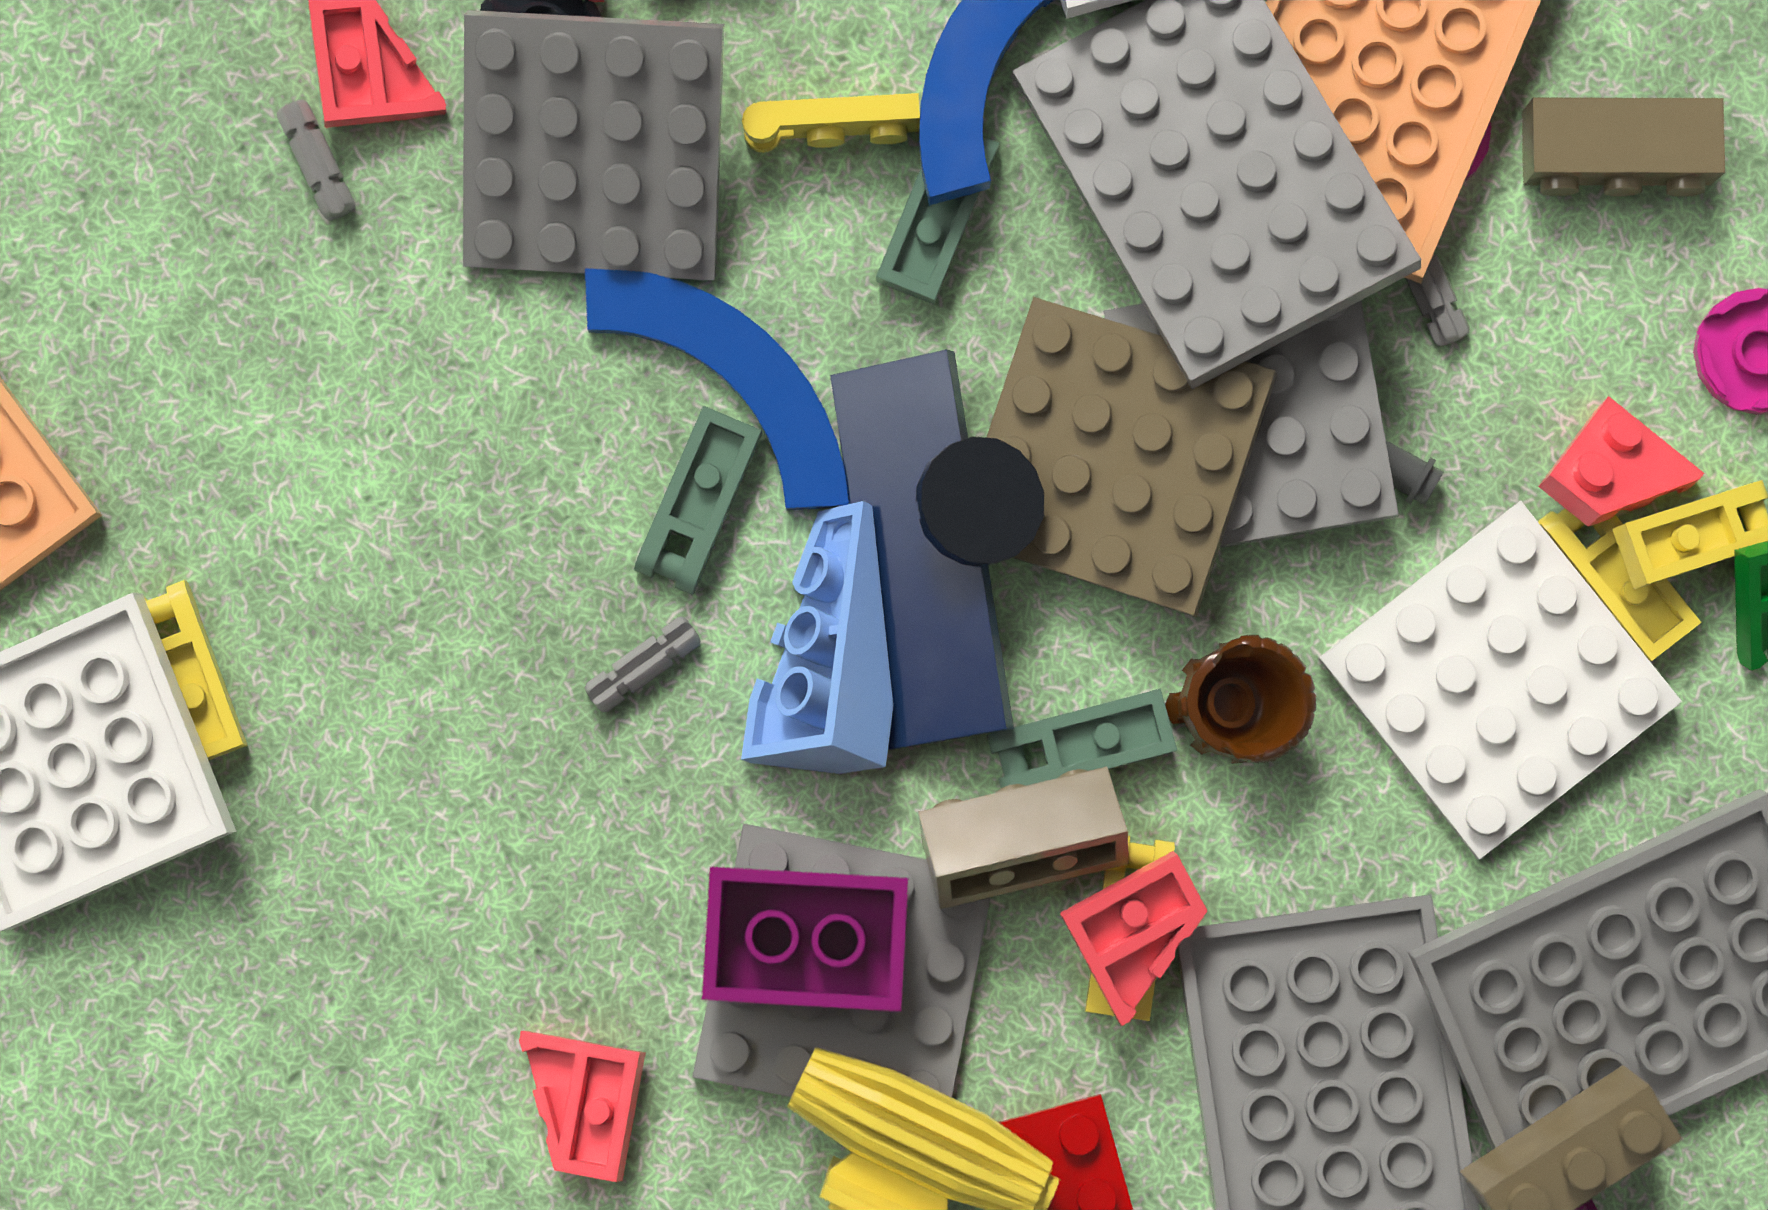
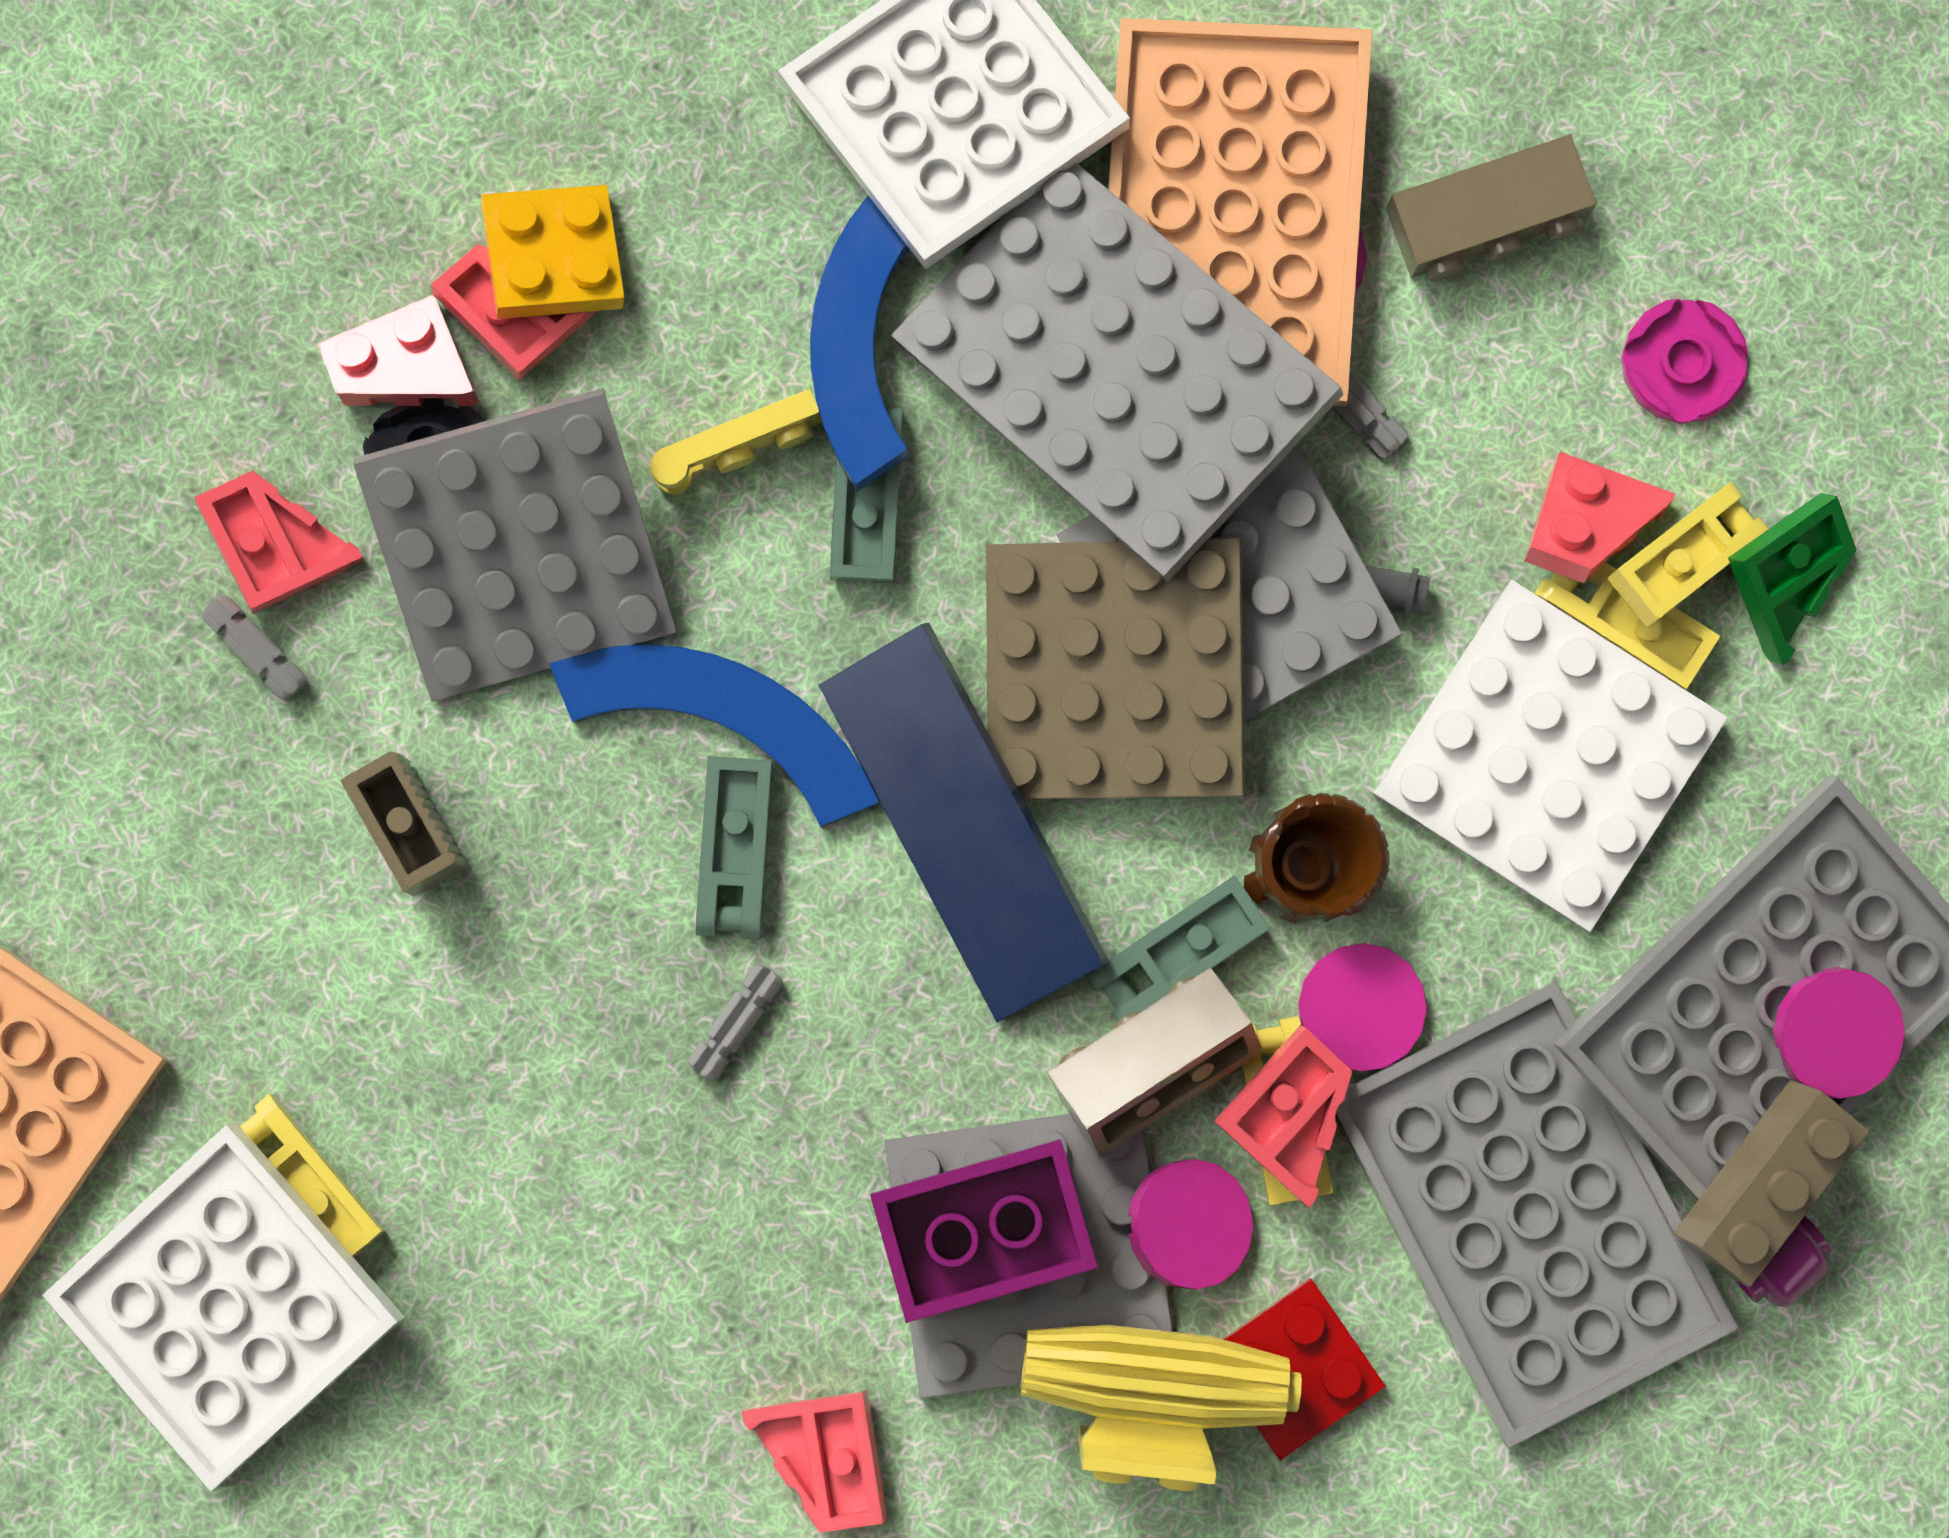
camera: 20 degrees left, 0 degrees up
(396, 369) = (403, 823): none -> dark tan brick
(833, 681) = (922, 977): light blue wedge -> none
(980, 501) = (1003, 758): black tile -> none
(1004, 1003) = (1190, 1224): none -> dark pink tile
(1240, 854) = (1363, 1005): none -> dark pink tile
(1685, 1036) = (1839, 1032): none -> dark pink tile

